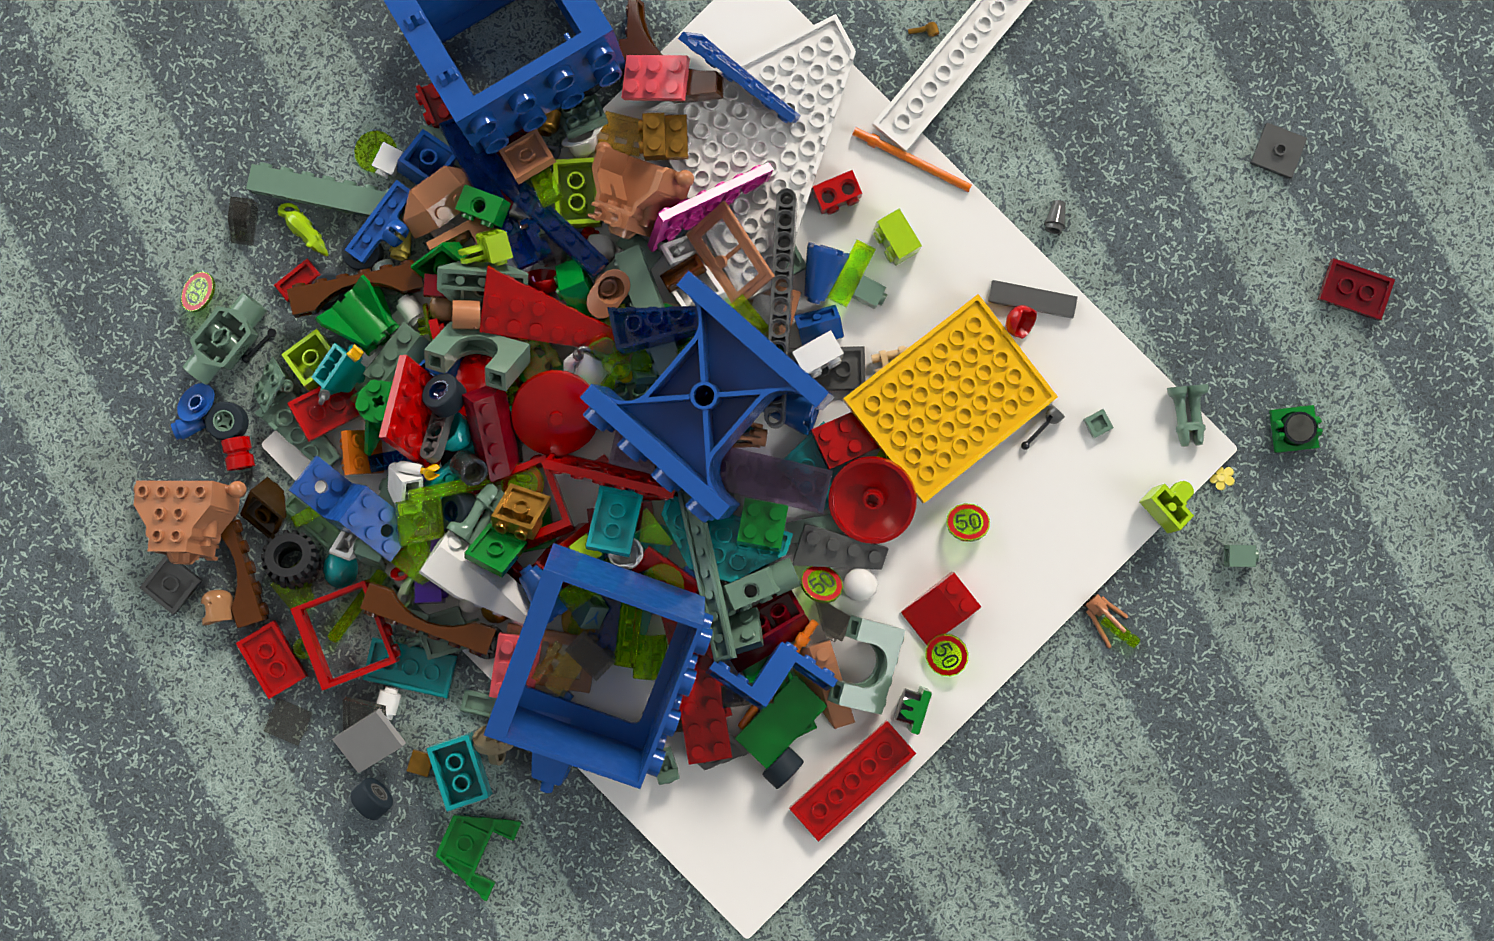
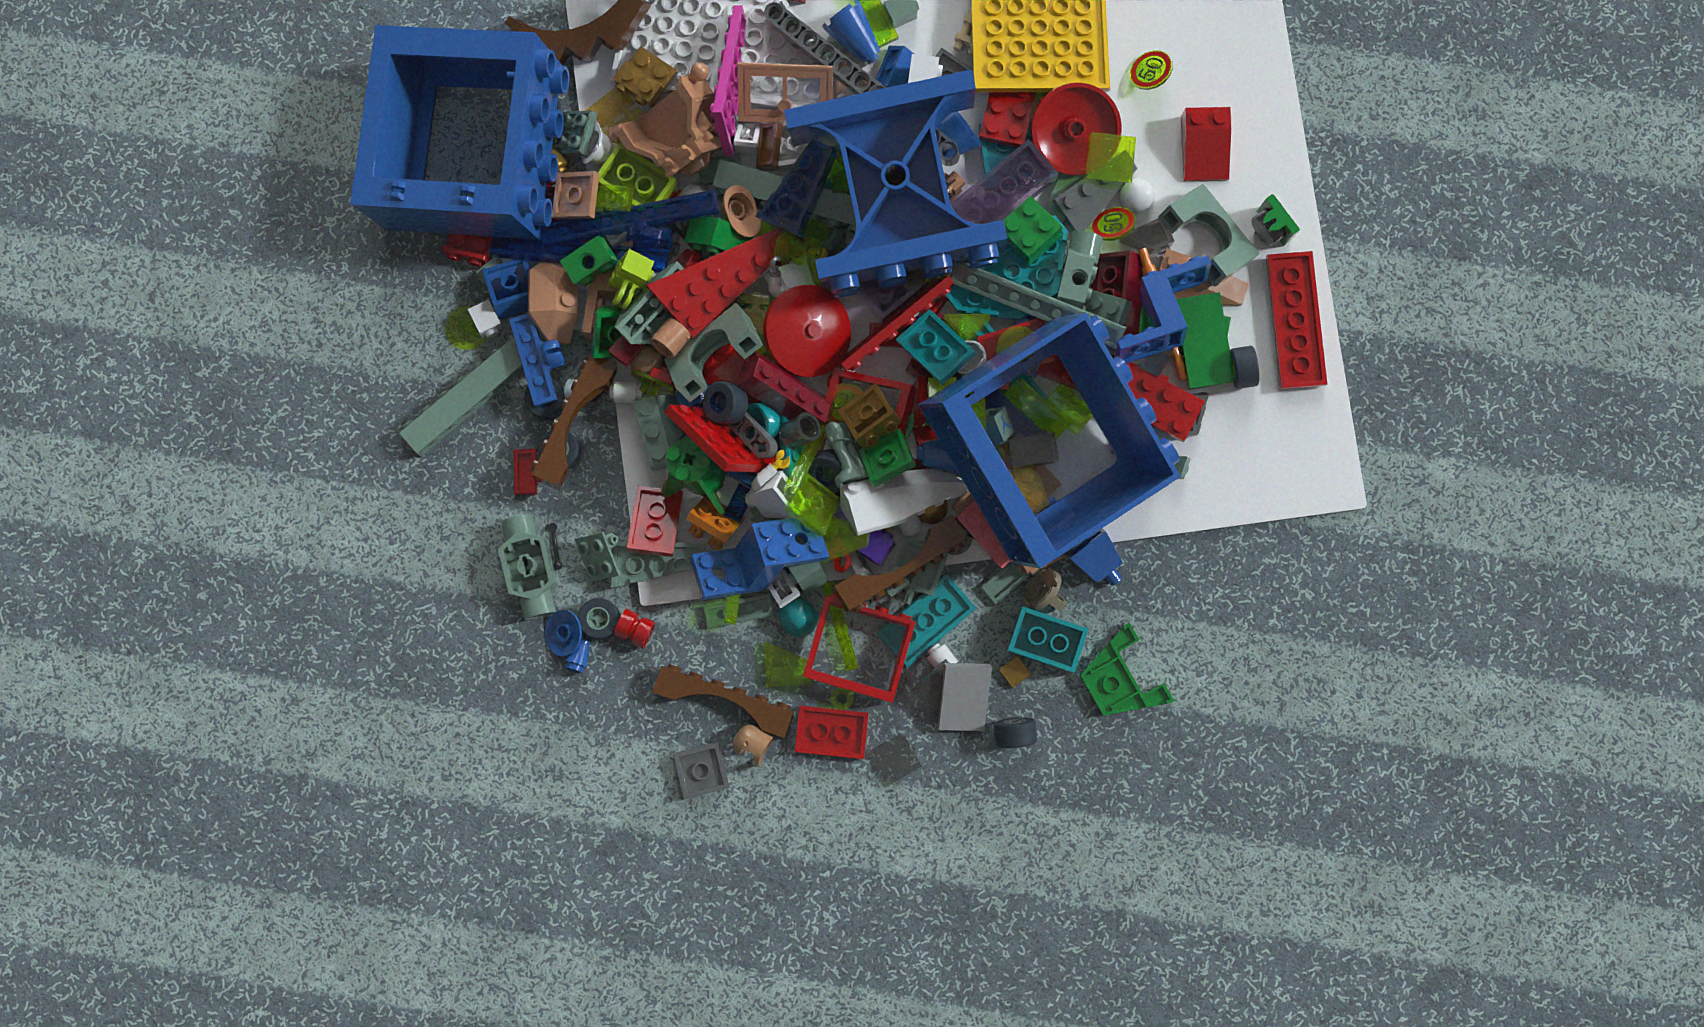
camera: 55 degrees left, 5 degrees down
(186, 516) = (656, 703): nougat piece -> none
(198, 292) = (470, 561): piece -> none
(242, 220) = (440, 479): clear smoke slope -> none
(265, 507) = (700, 640): dark brown slope -> none
(283, 545) = (745, 639): black tyre -> none
(302, 228) = (483, 434): lime animal -> none
(306, 357) = (606, 503): lime brick -> none
(339, 371) = (634, 480): teal torso -> none
(361, 317) = (602, 434): green brick -> none
(402, 251) = (570, 366): light yellow cone -> none
(655, 77) = (592, 45): coral plate -> none
(869, 544) = (1110, 157): none -> clear neon green tile
(947, 655) = (1248, 166): piece -> none
(1099, 606) = (1298, 19): nougat plant -> none
(1131, 639) = (1331, 18): clear neon green axle -> none

